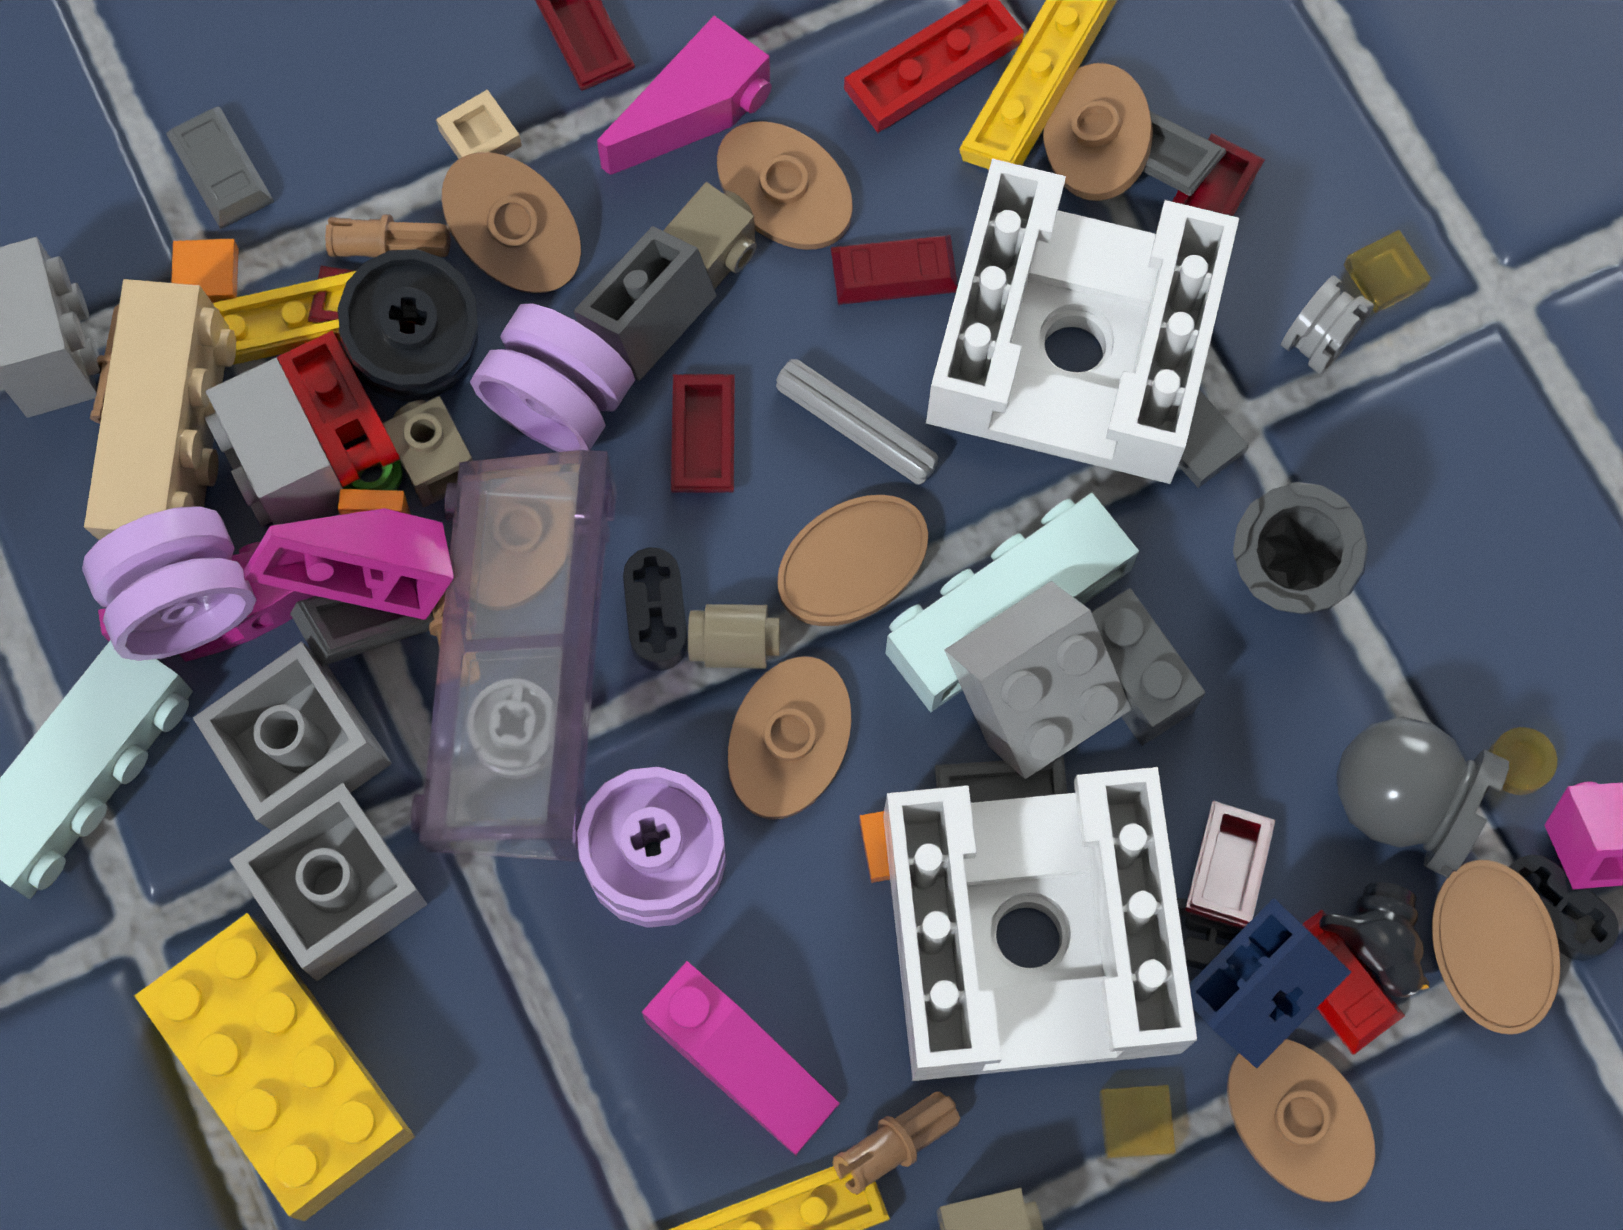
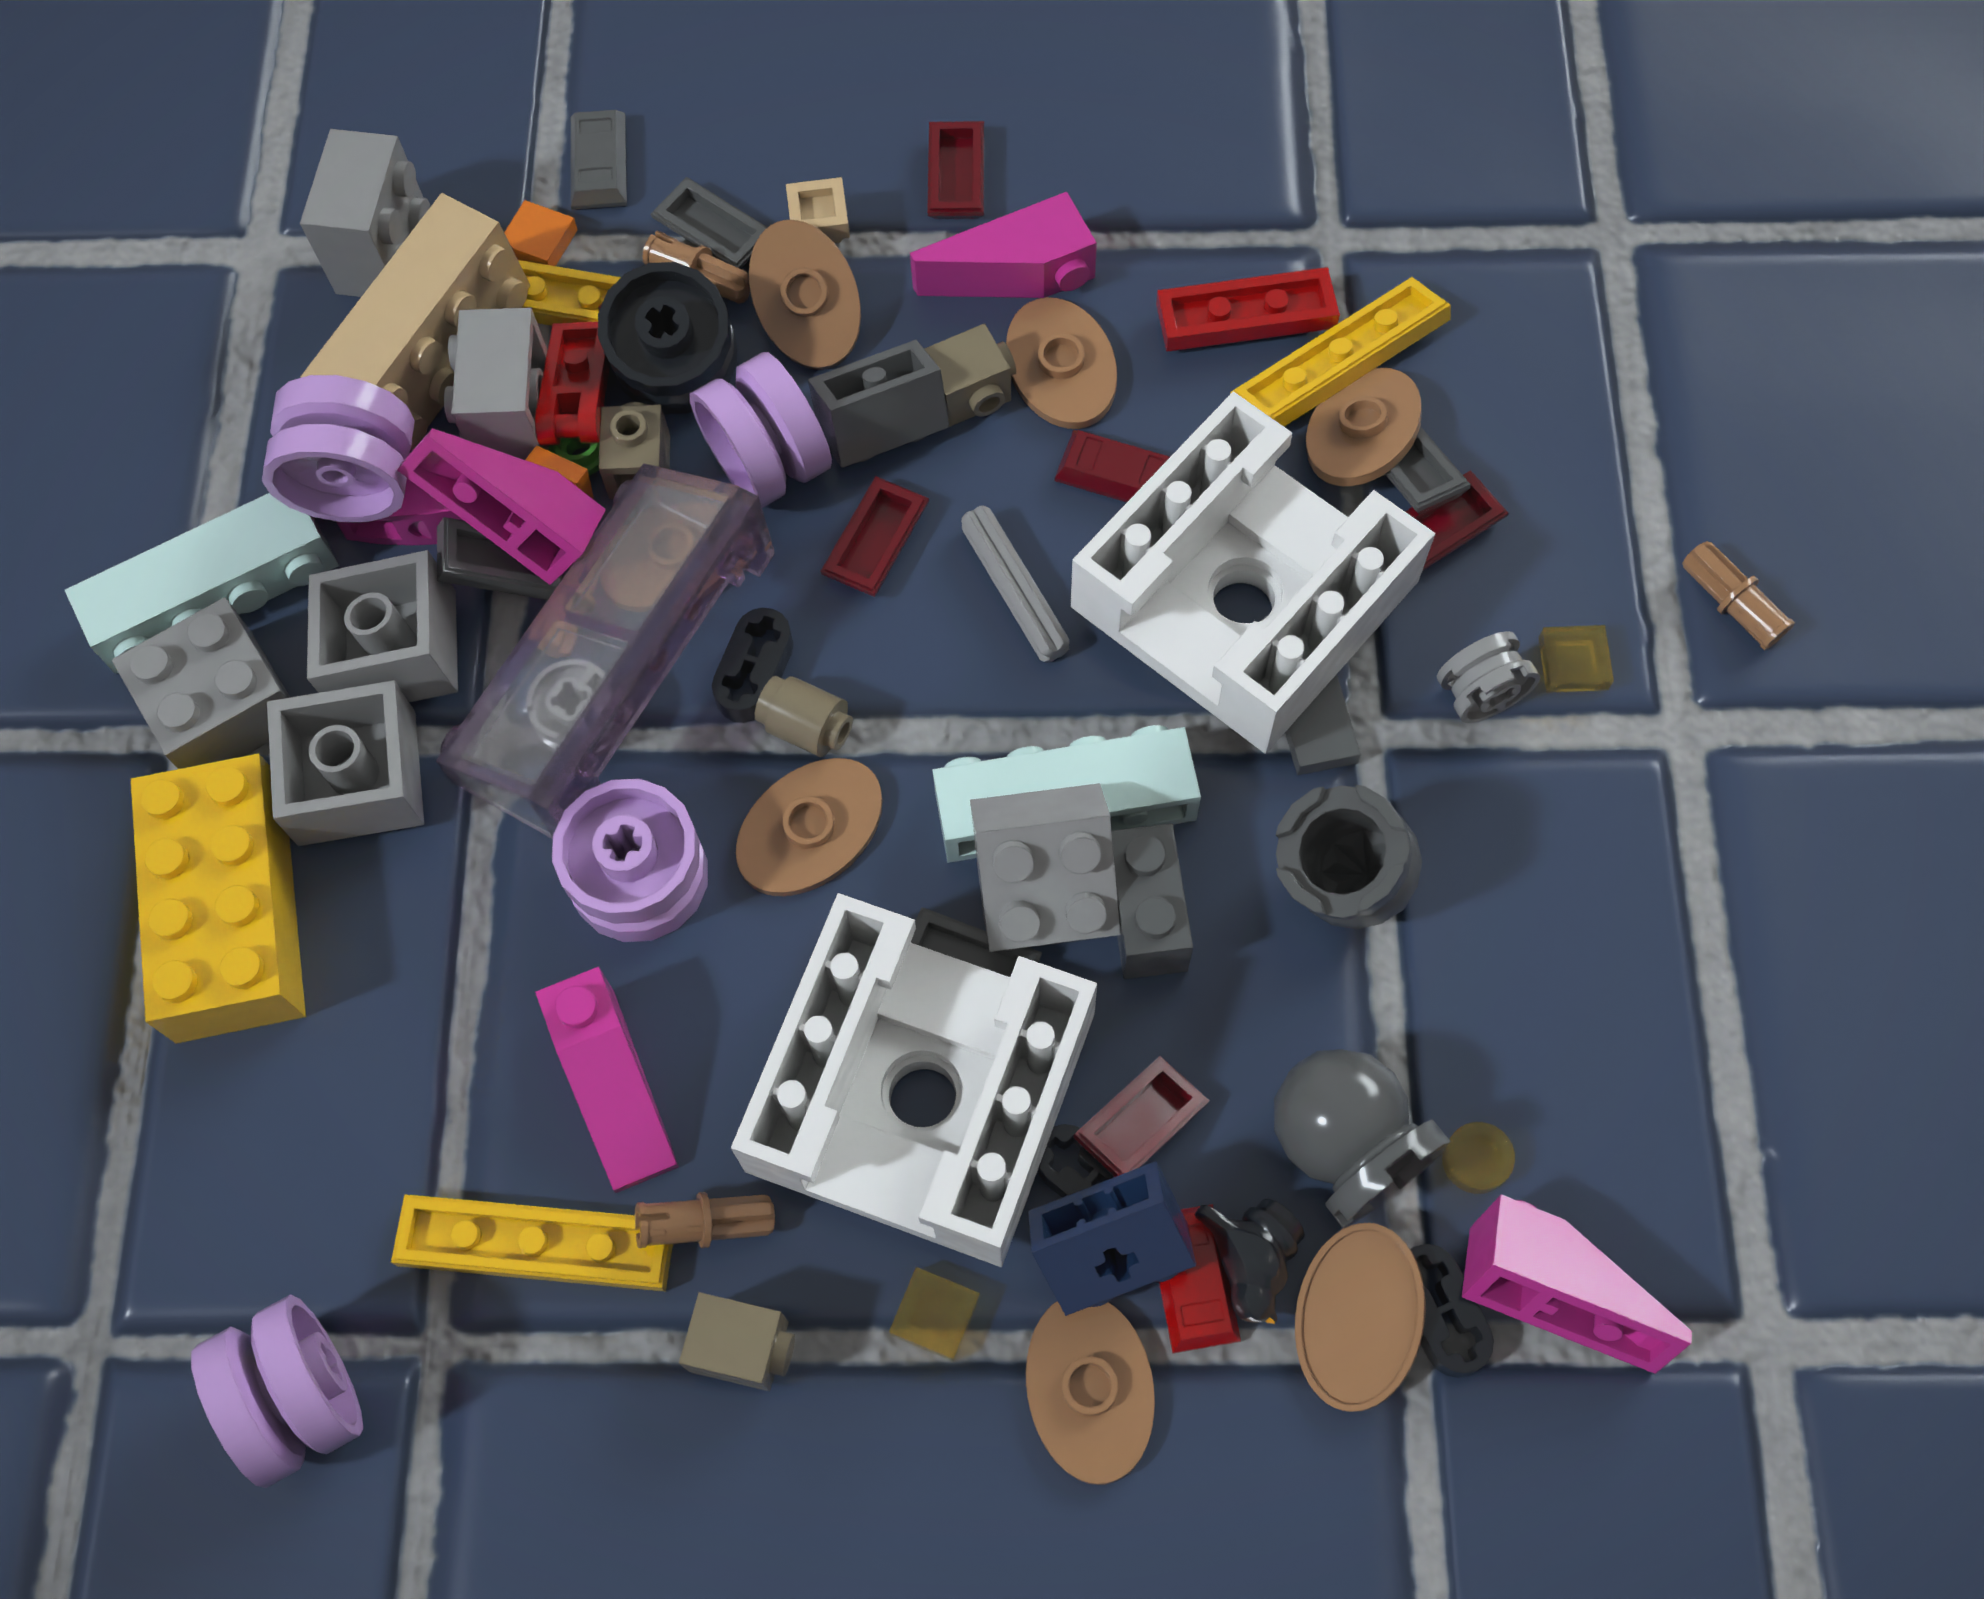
camera: 30 degrees right, 5 degrees down
(146, 873) = (203, 687): none -> light grey brick
(374, 186) = (709, 222): none -> dark grey tile
(852, 560) = (946, 699): medium nougat piece -> none
(1496, 150) = (1737, 594): none -> medium nougat axle

